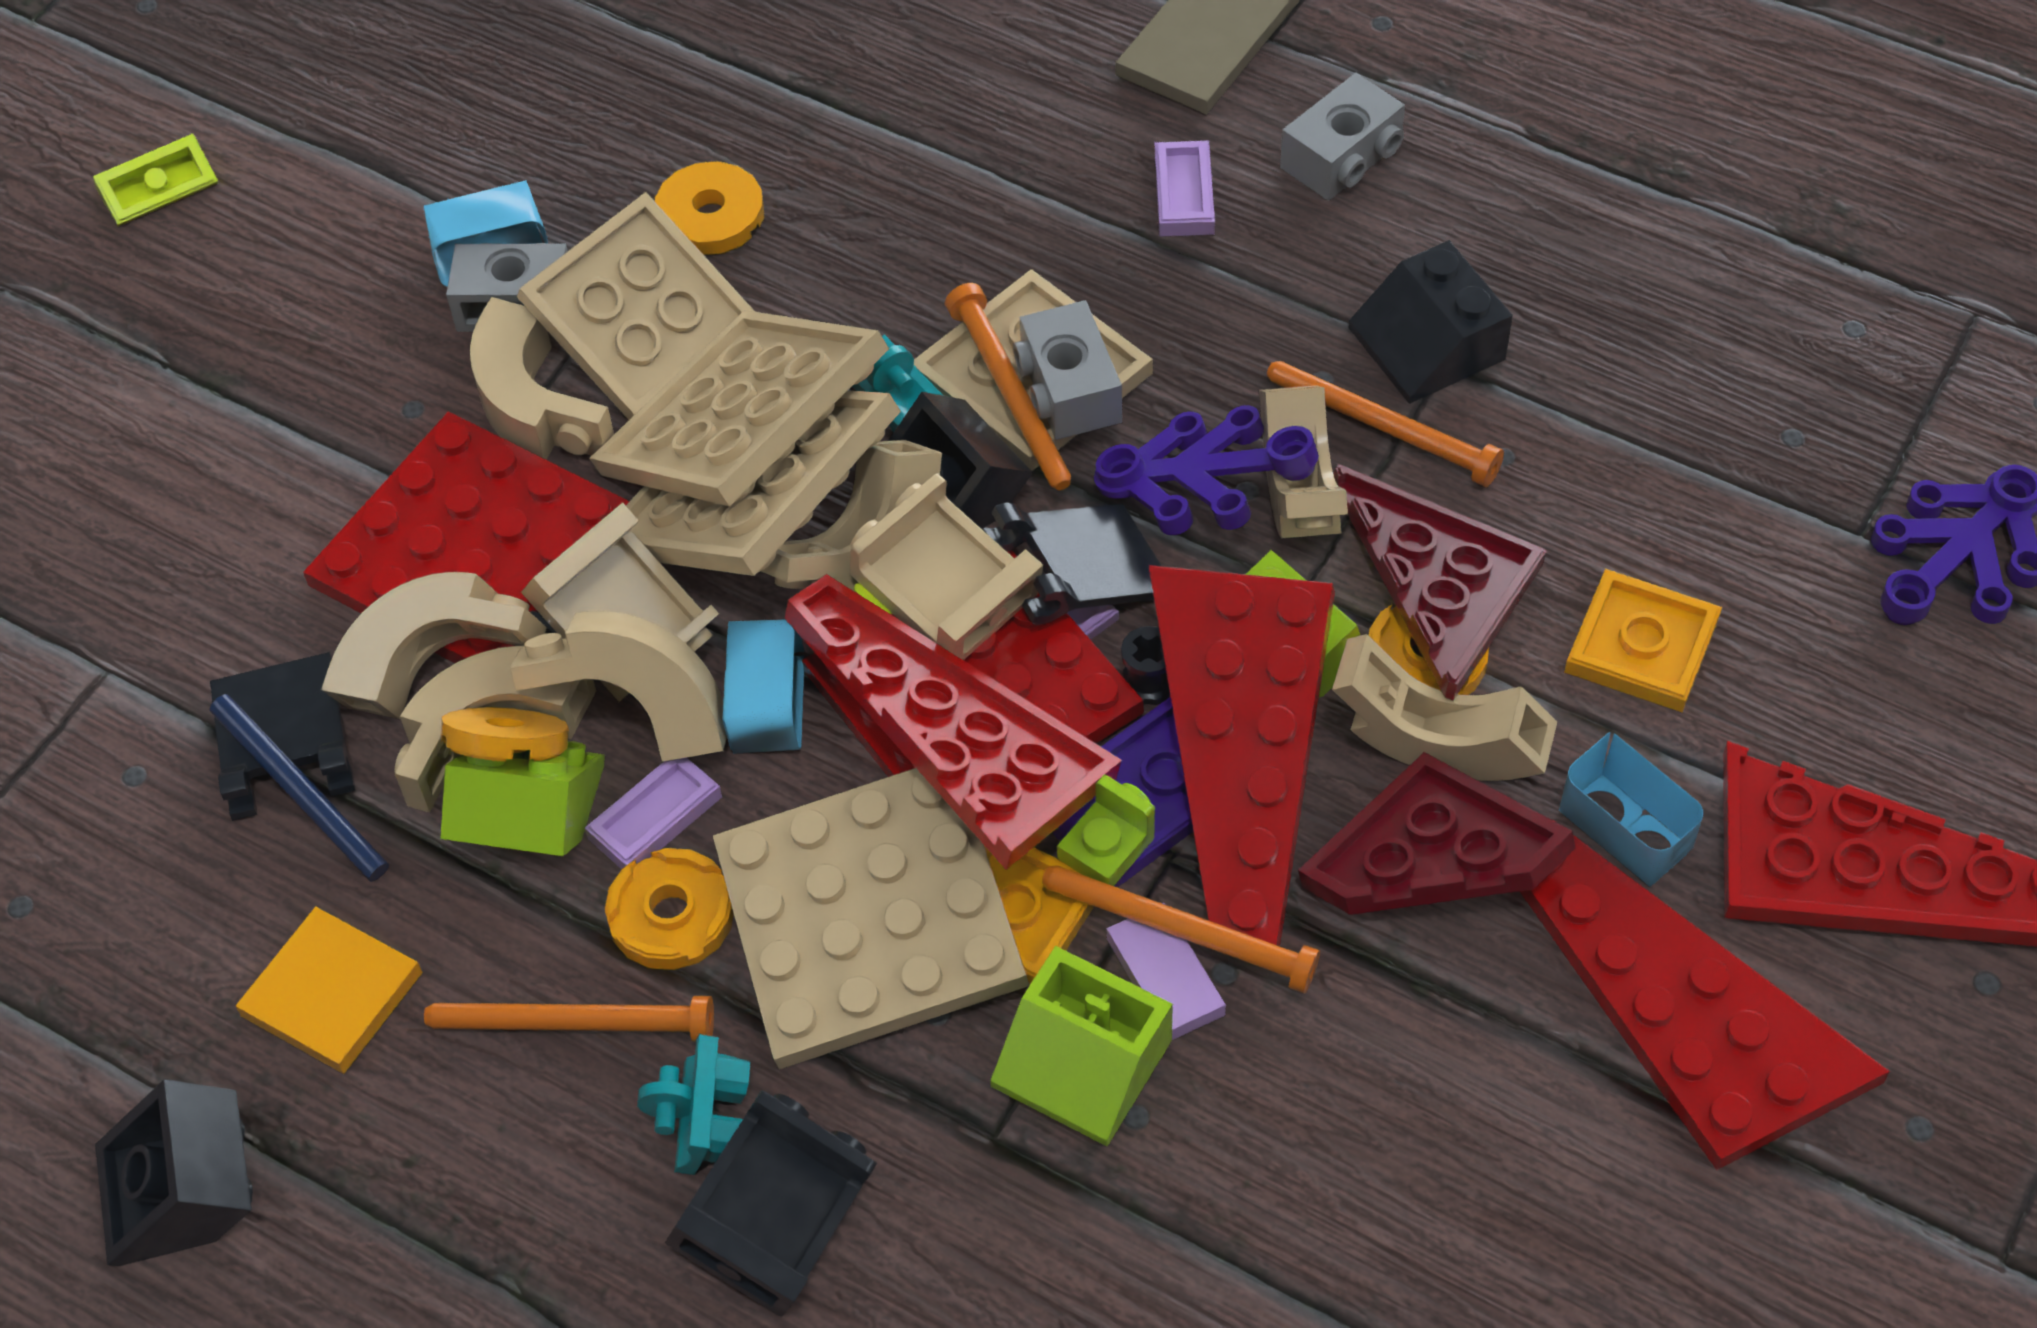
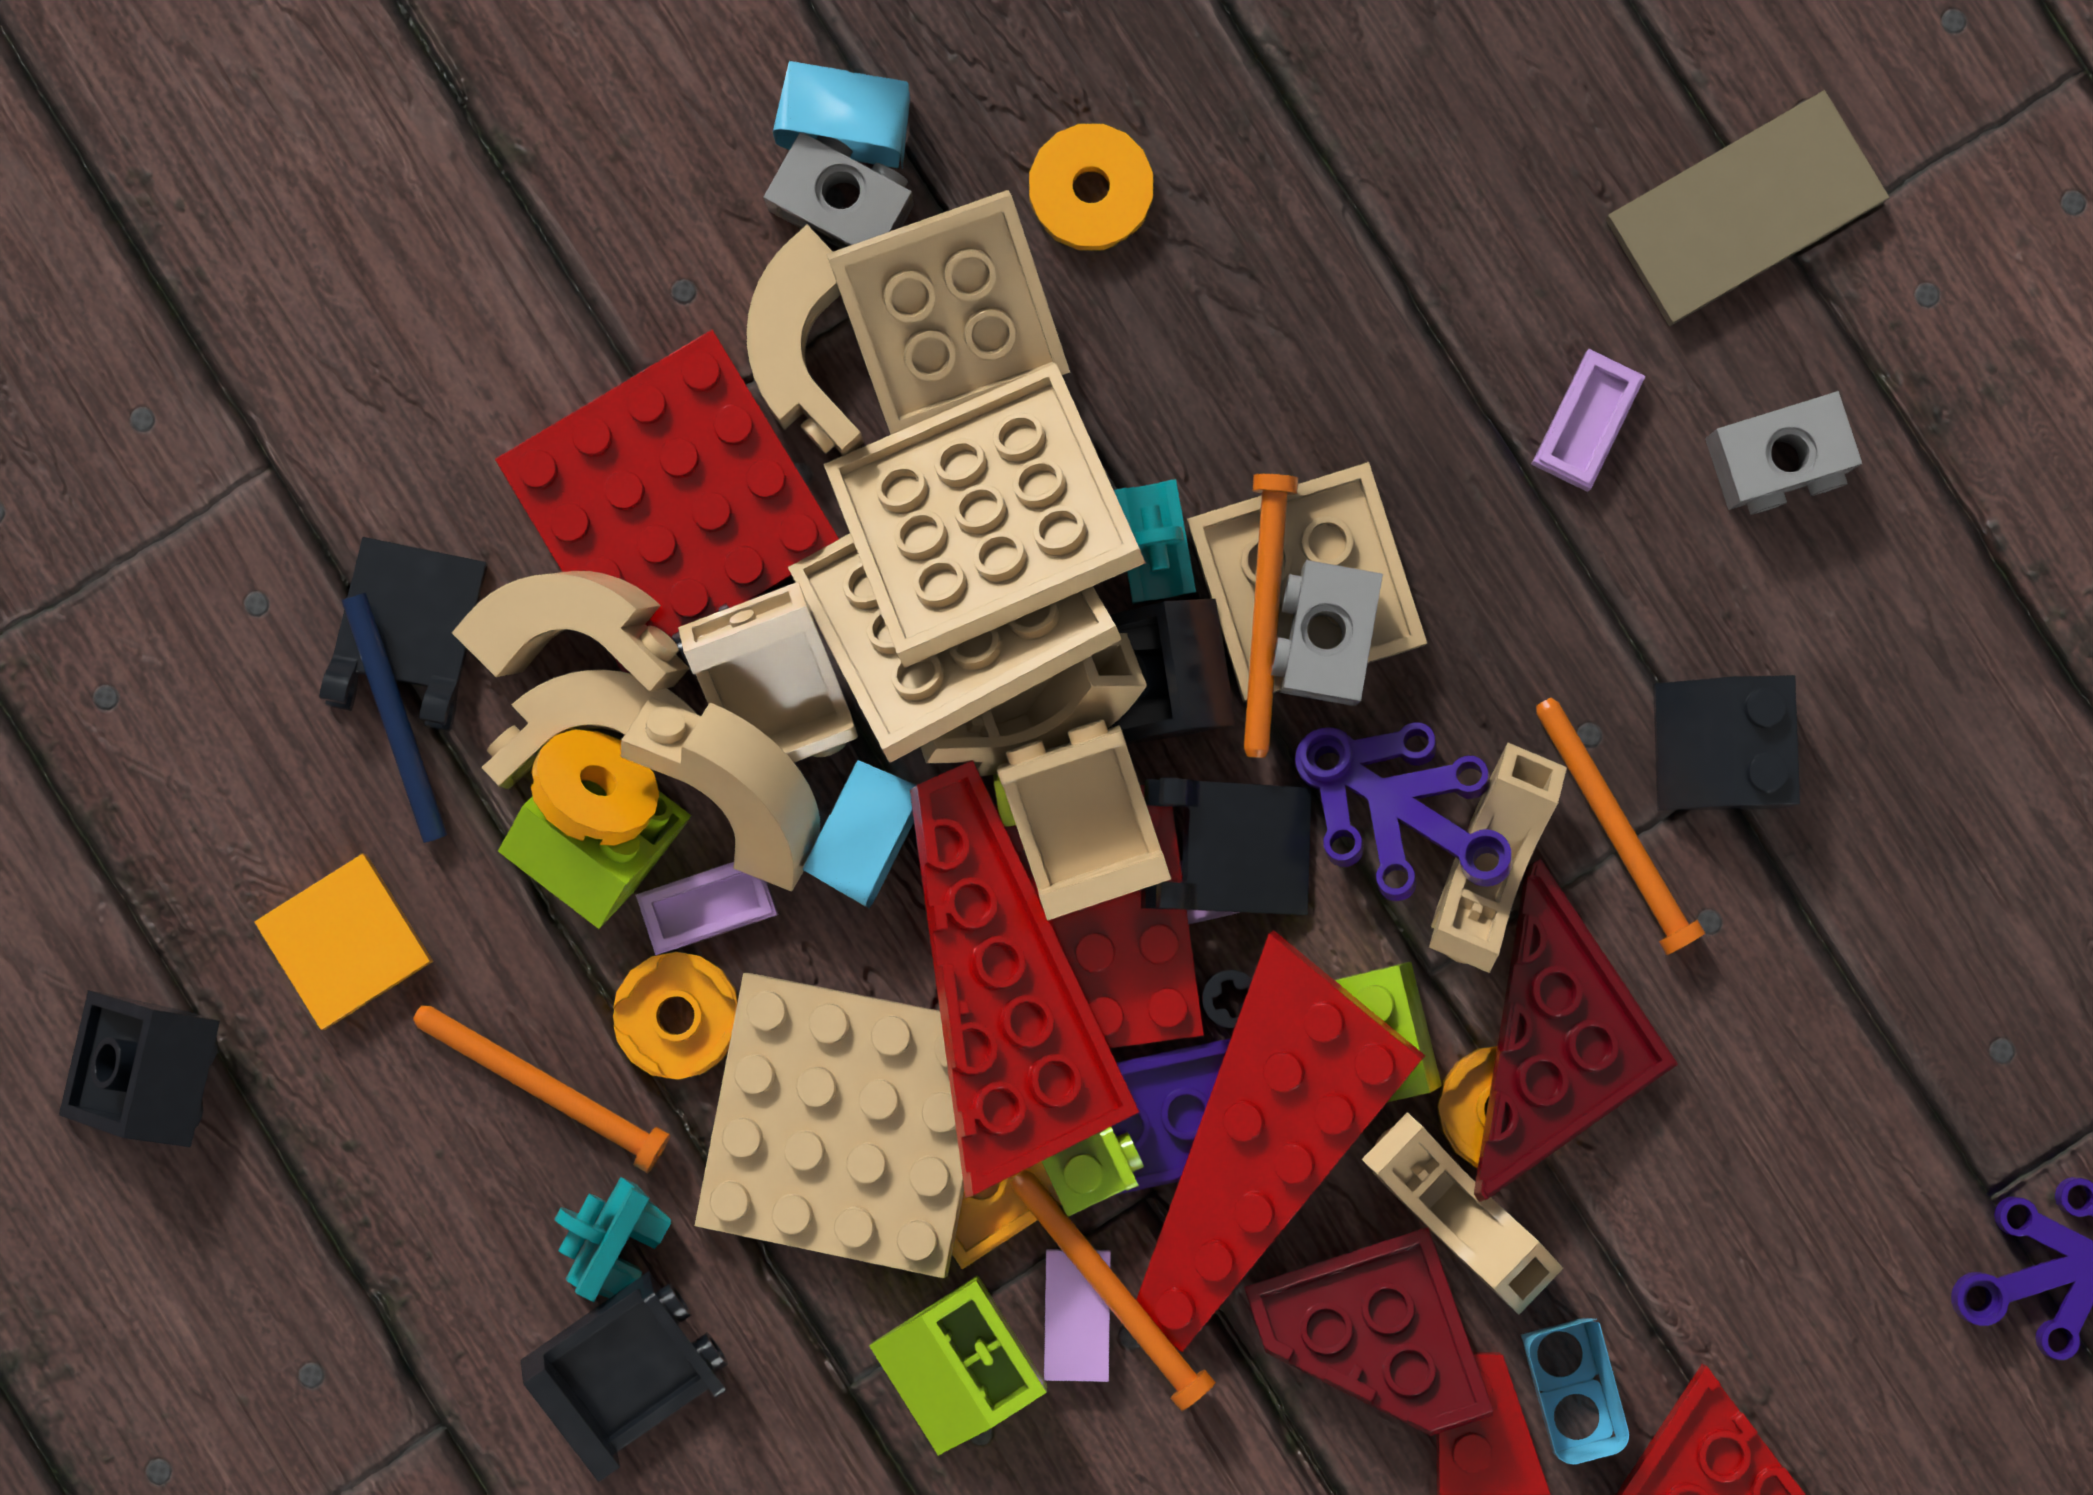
camera: 25 degrees right, 30 degrees up
(1643, 640) = (1708, 1204): light orange tile -> none

